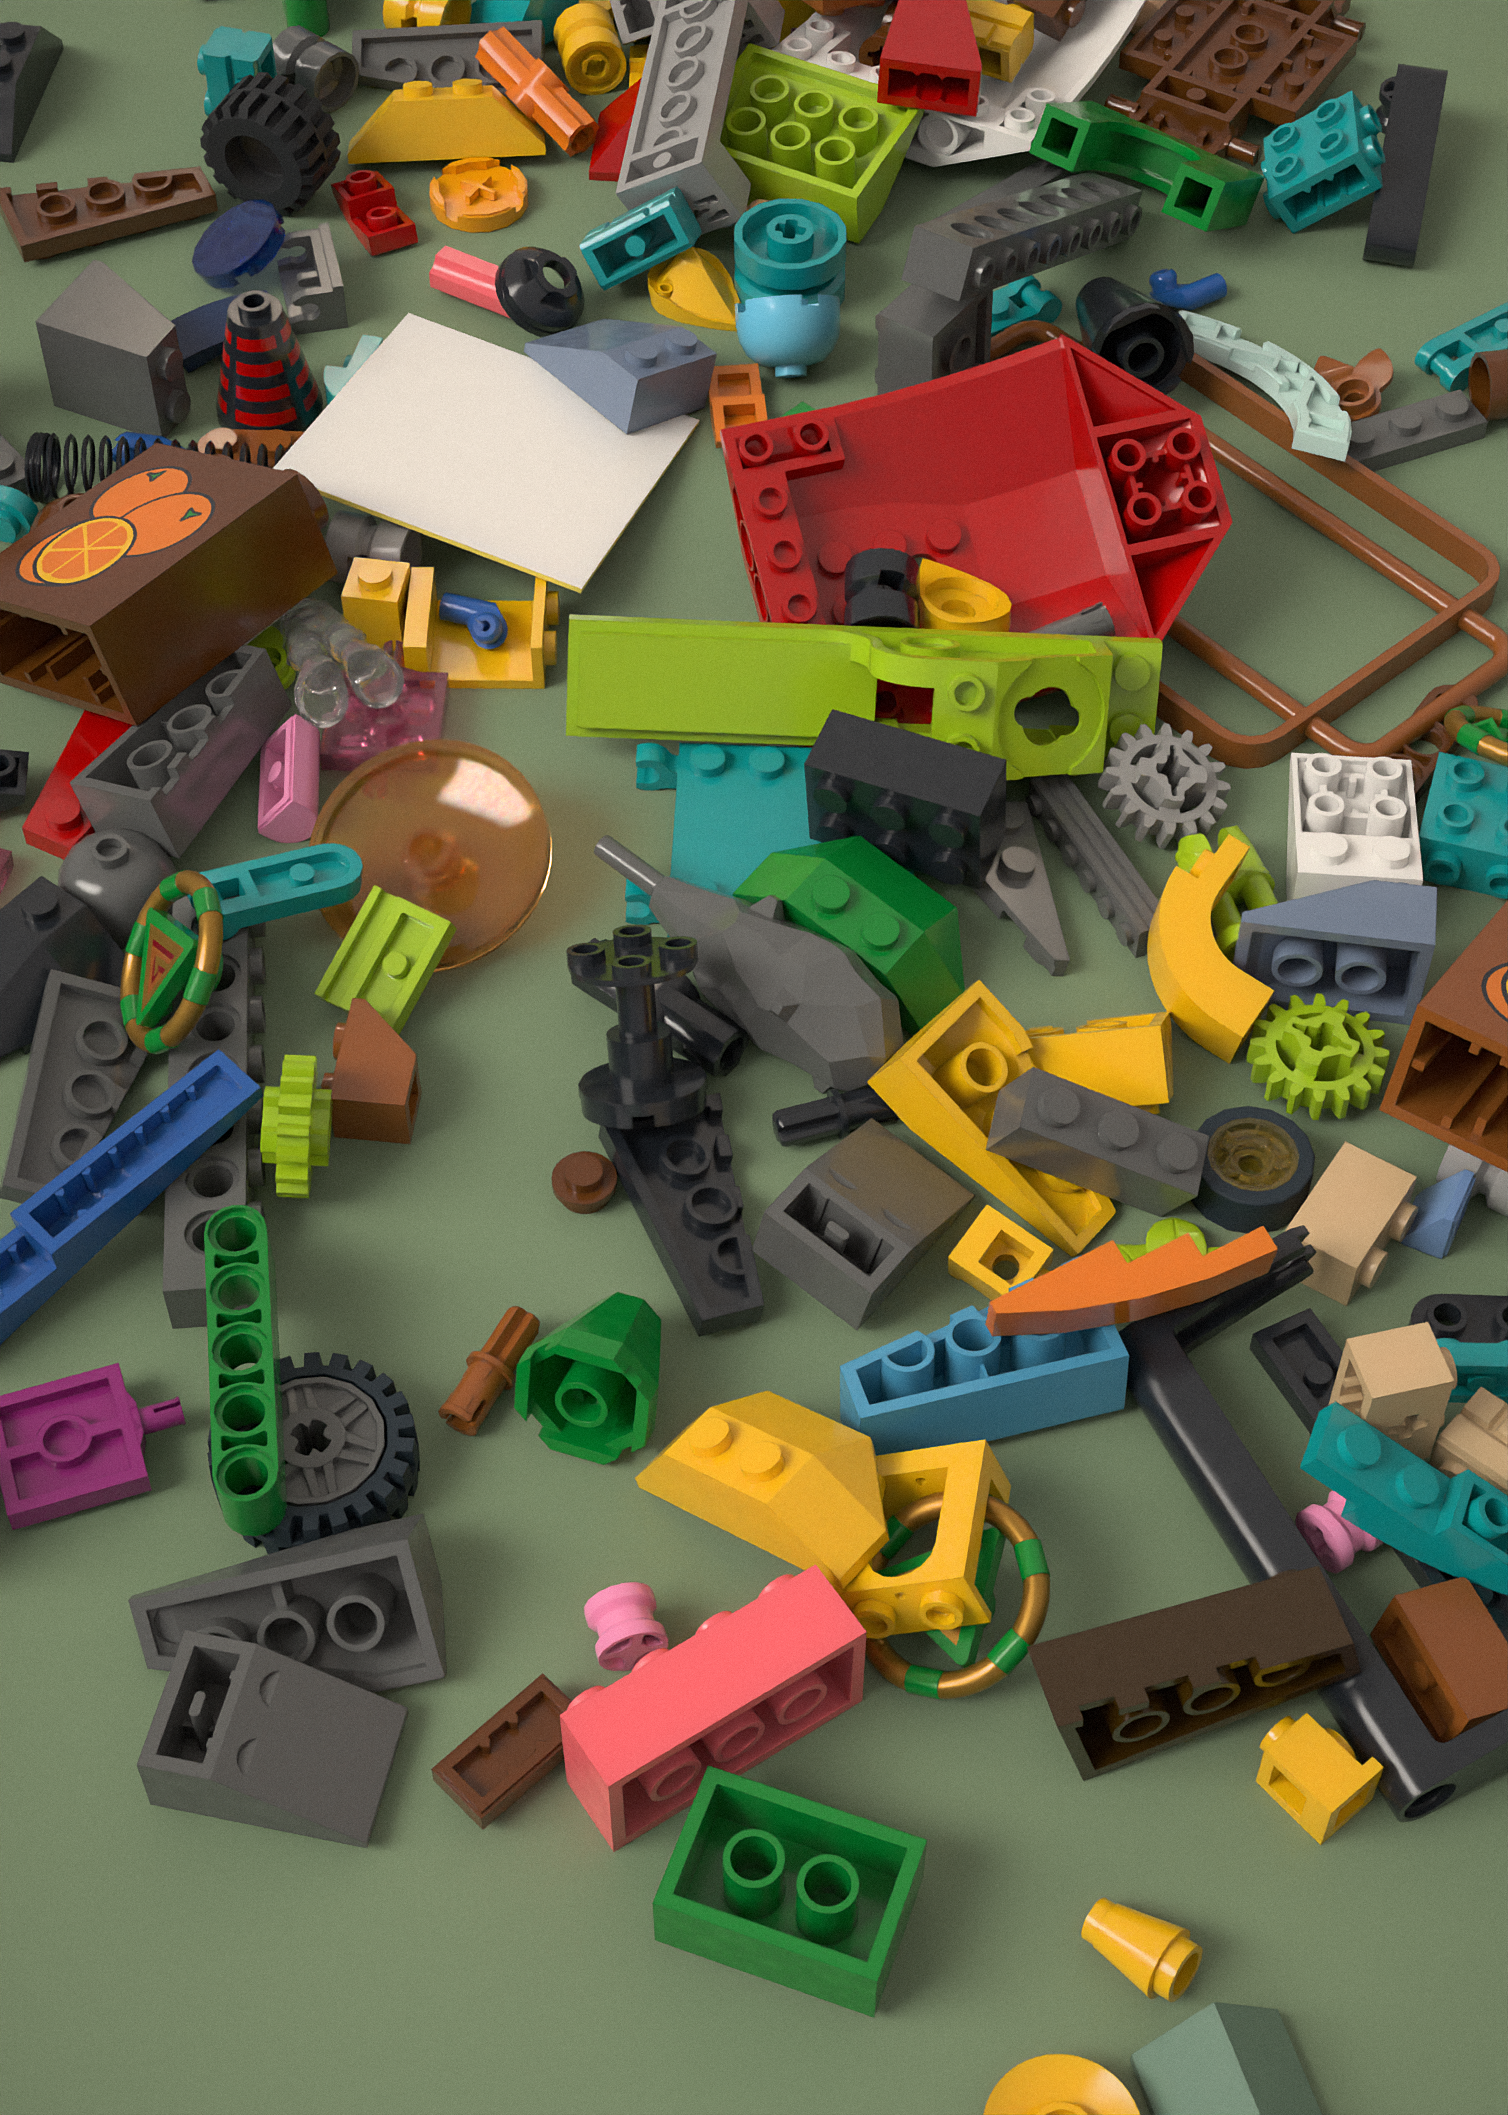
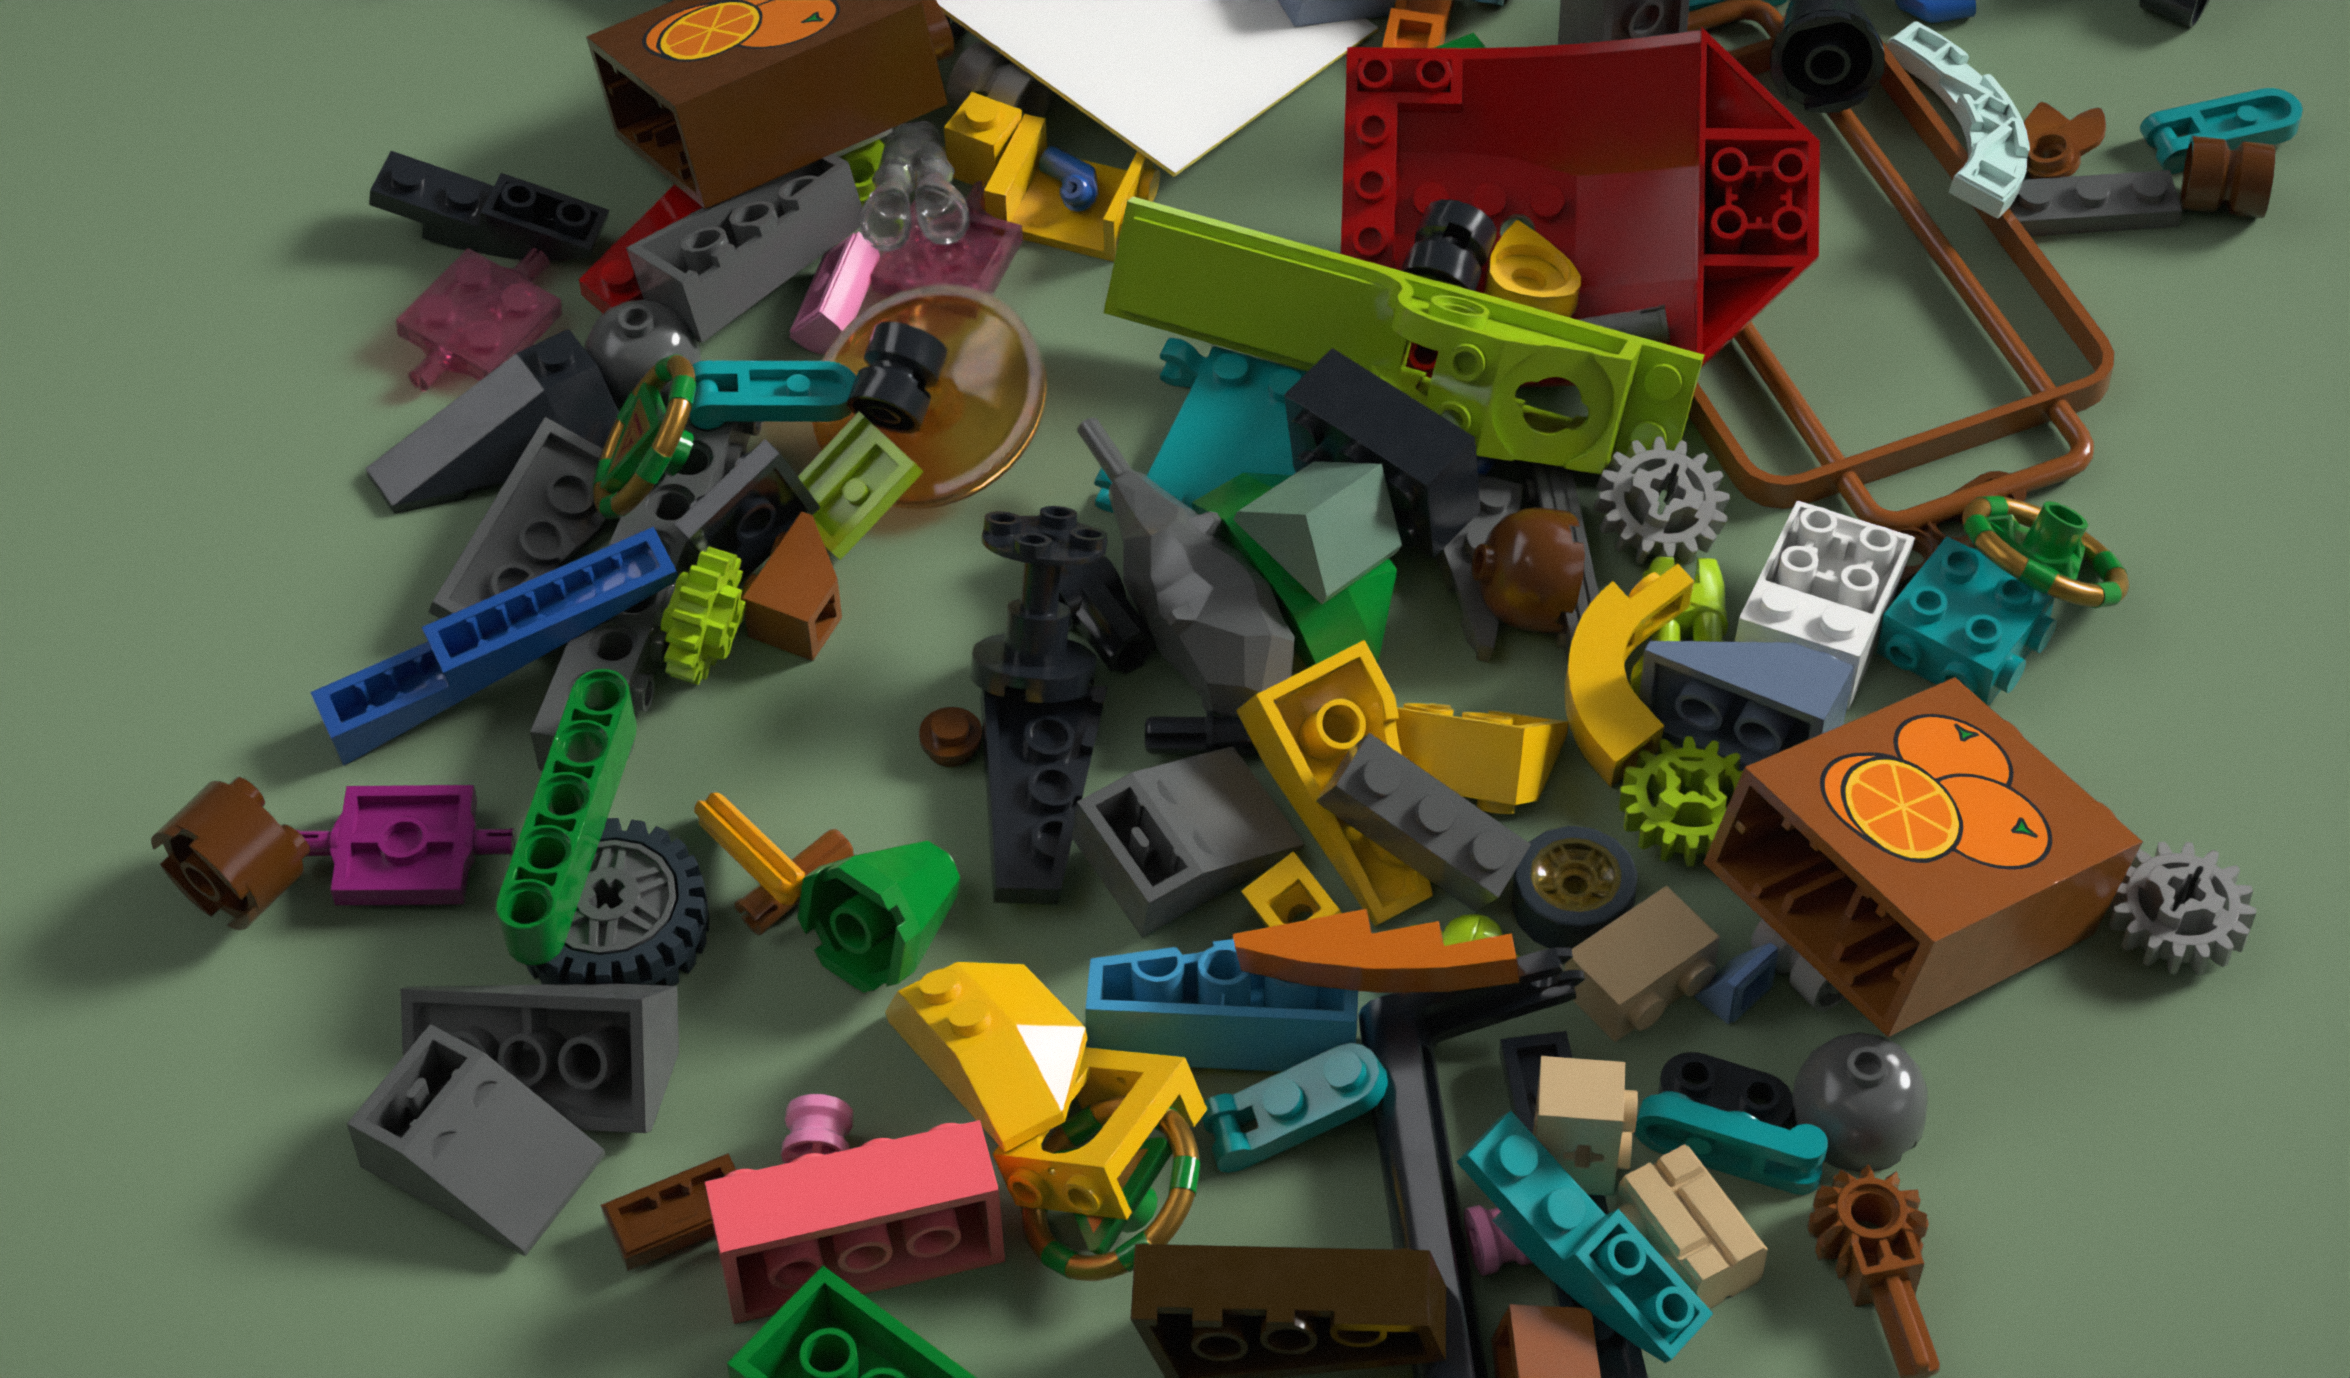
camera: 20 degrees right, 0 degrees up
(303, 1006) = (748, 508): none -> black plate
(401, 834) = (899, 370): none -> black wheel
(438, 1349) = (750, 848): none -> light orange axle
(888, 877) = (1326, 524): none -> sand green slope
(1086, 875) = (1531, 568): none -> reddish brown cylinder
(1091, 1454) = (1294, 1105): none -> teal plate

